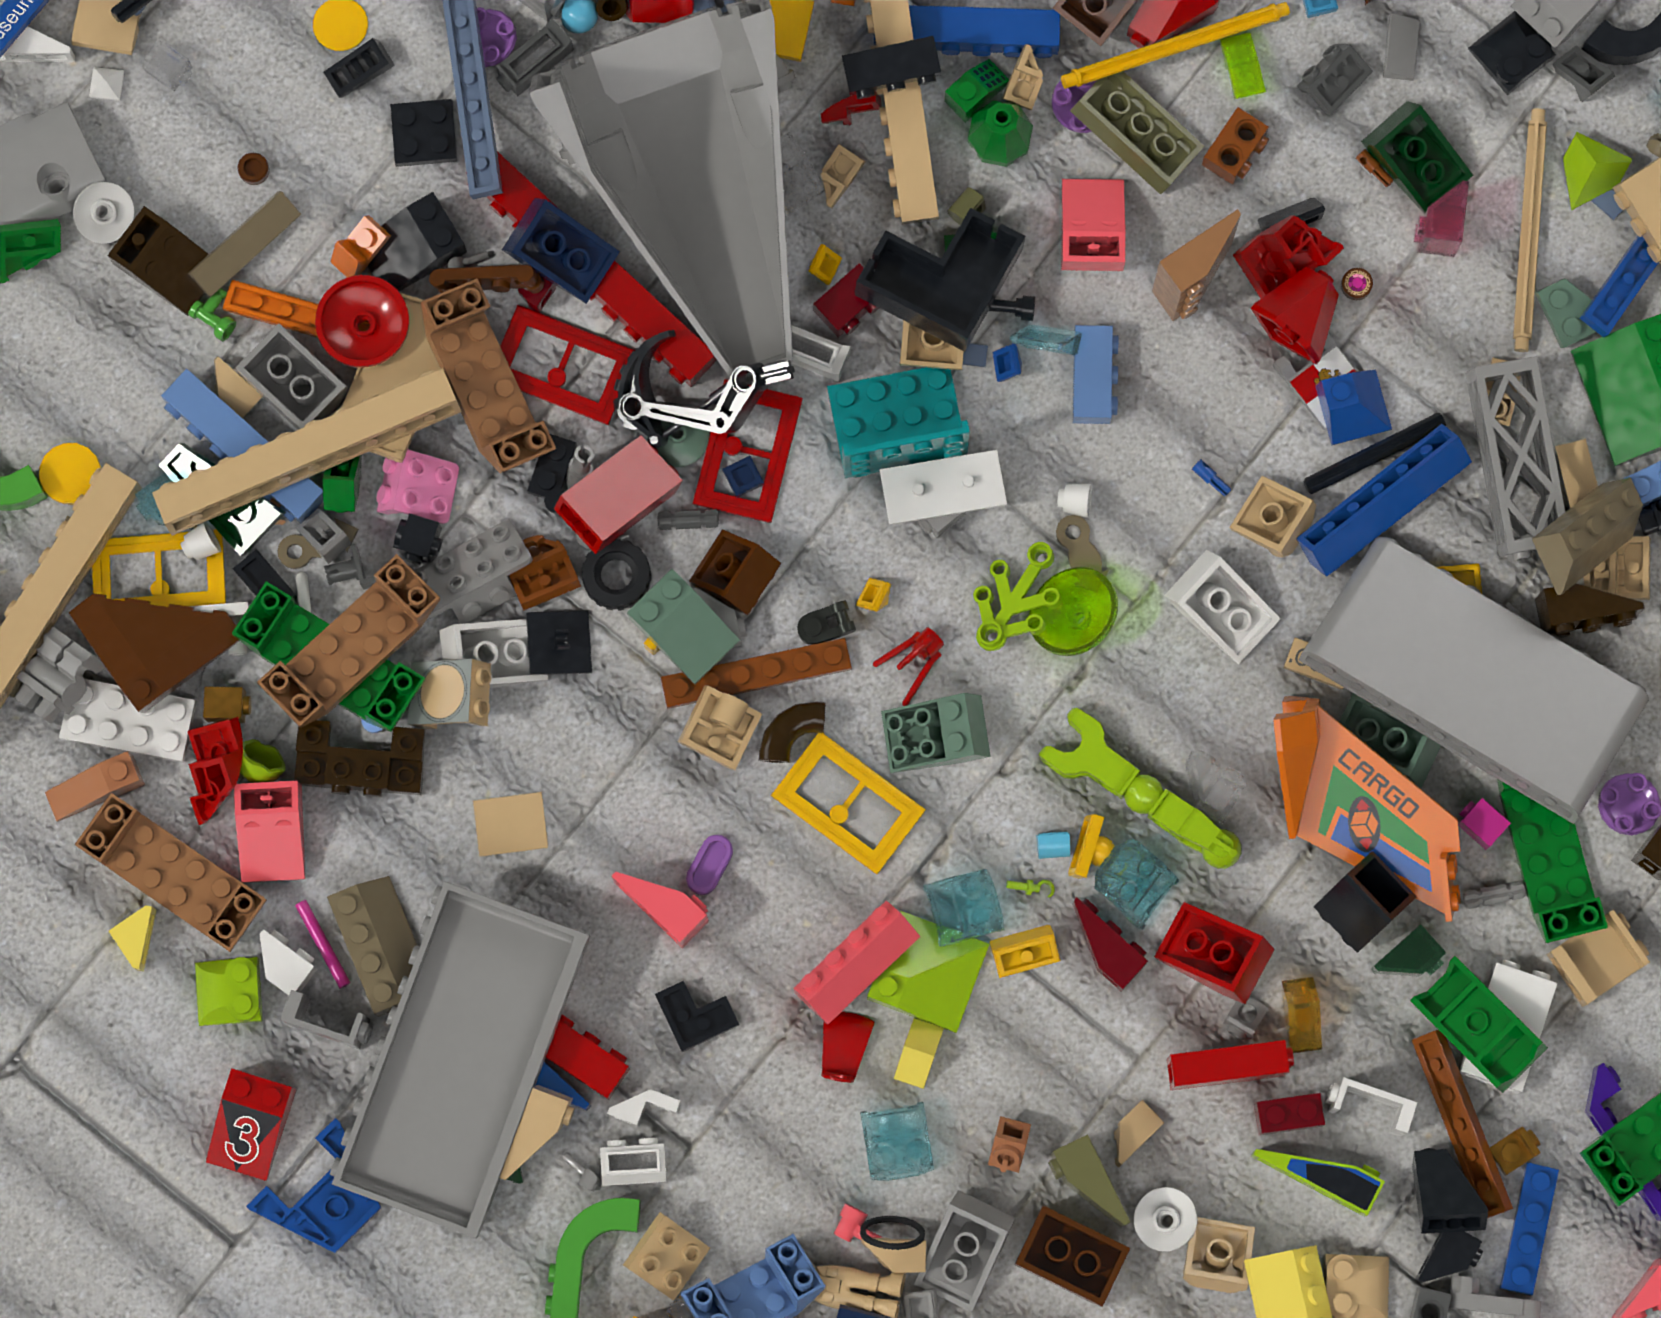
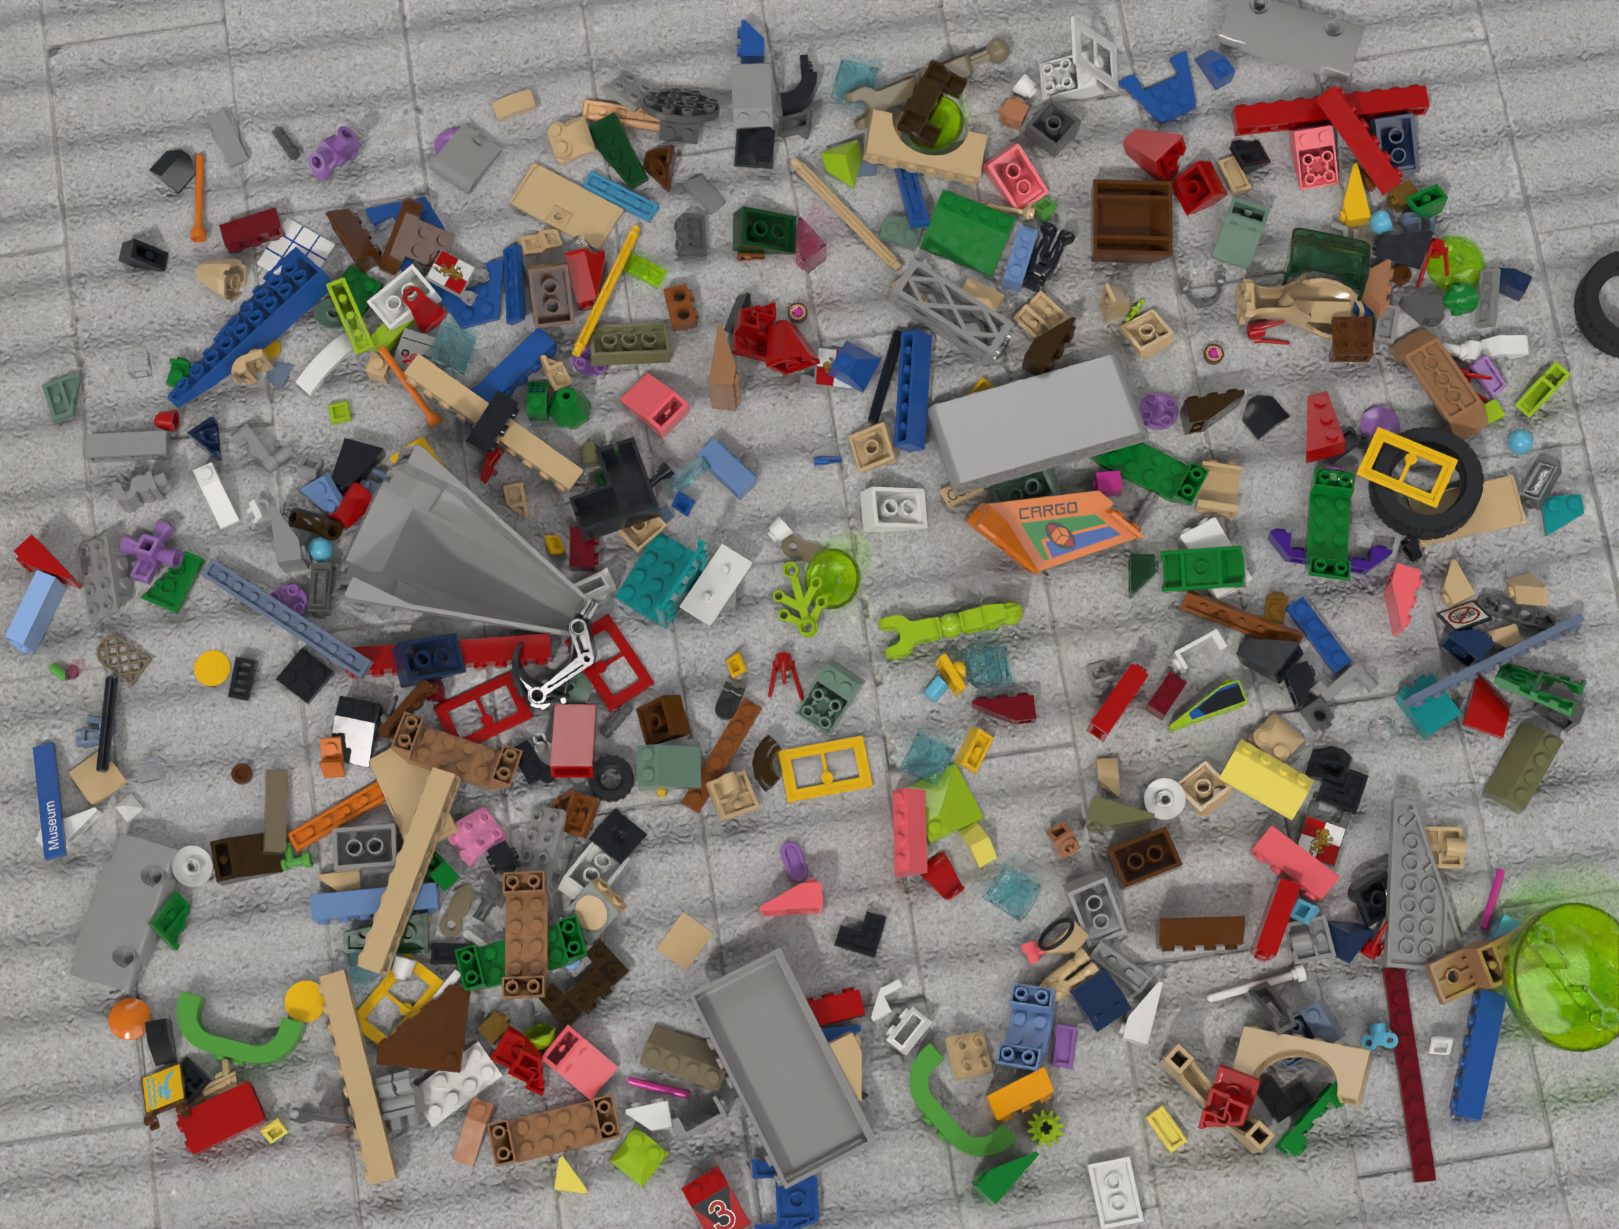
camera: 50 degrees left, 5 degrees down
(324, 535) = (457, 902): light grey slope -> none
(359, 301) = (368, 773): red dish -> none
(743, 476) = (620, 675): dark blue tile -> none
(1029, 887) = (945, 719): lime hand -> none
(1215, 952) = (1056, 661): red slope -> none
(1302, 1014) = (1122, 646): clear yellow slope -> none
(1364, 901) = (1097, 569): black slope -> none
(1589, 532) = (1016, 310): dark tan slope -> none

